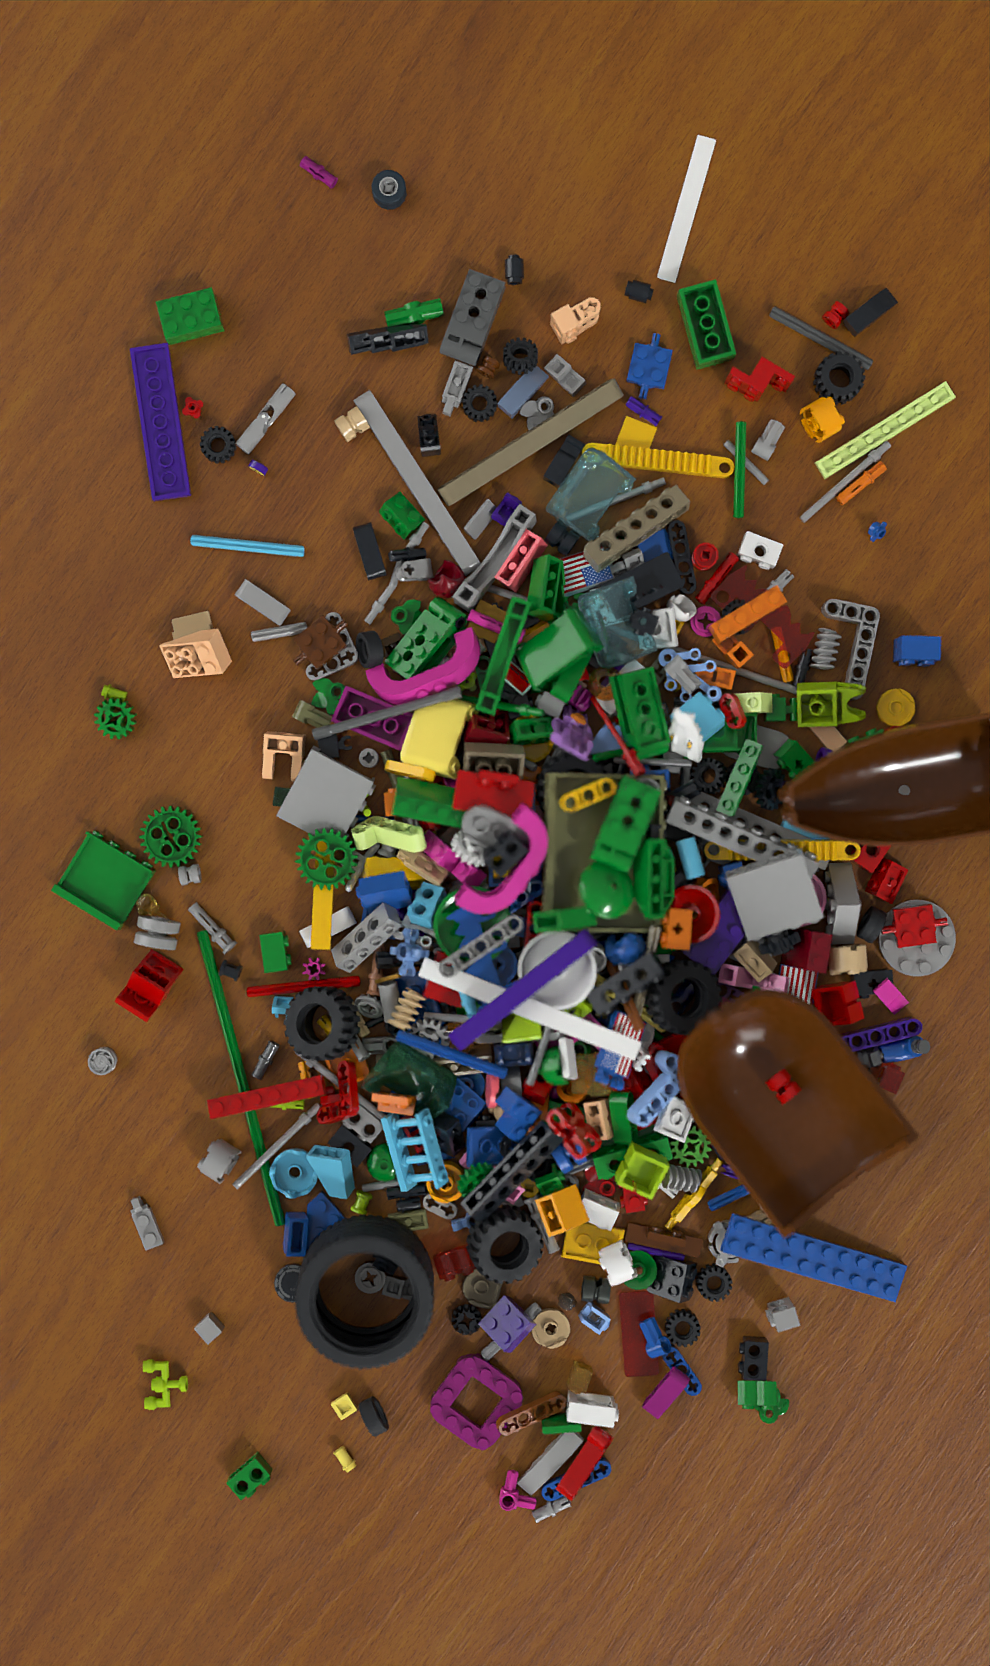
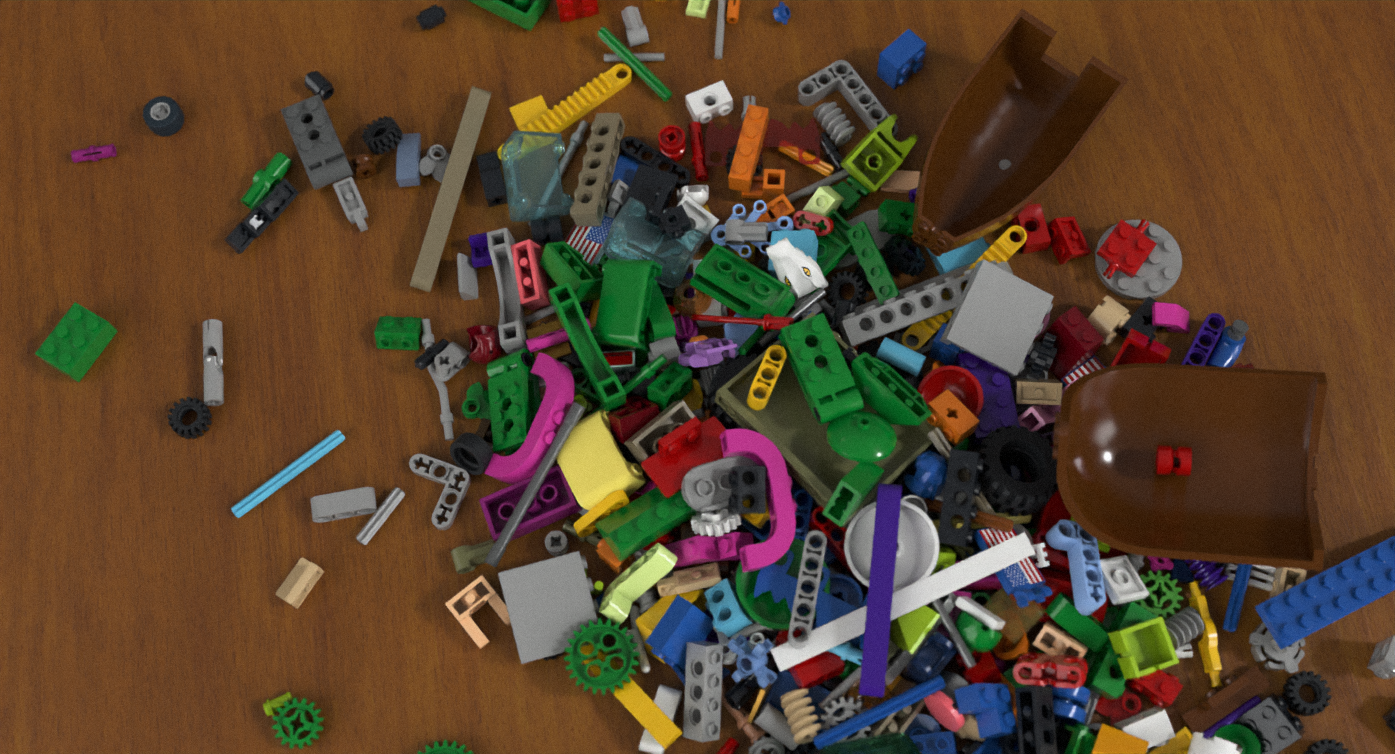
camera: 45 degrees left, 20 degrees down
(160, 422) = (123, 445): dark purple plate -> none
(196, 411) = (147, 411): red plate -> none
(197, 654) = (323, 598): light nougat slope -> none
(258, 467) = (241, 404): dark purple tile -> none
(280, 795) = (510, 650): clear green tile -> none
(320, 642) = (424, 488): reddish brown plate -> none
(325, 696) = (471, 530): green plate -> none
(331, 745) = (512, 560): black brick -> none
(351, 424) = (290, 303): tan wheel -> none
(369, 551) = (398, 382): black beam -> none
(417, 483) = (387, 296): light grey beam -> none
(429, 435) = (364, 253): black slope -> none
(479, 391) = (378, 187): black tyre -> none
(565, 375) = (431, 122): light grey slope -> none
(569, 322) = (394, 76): light nougat brick -> none
(643, 410) = (518, 91): dark purple axle -> none
(649, 366) = (491, 58): blue plate -> none
(712, 615) = (723, 181): dark pink gear -> none
(841, 903) = (1058, 279): light grey brick -> none
(871, 924) = (1094, 279): black tyre -> none
(895, 707) = (928, 115): yellow tile -> none

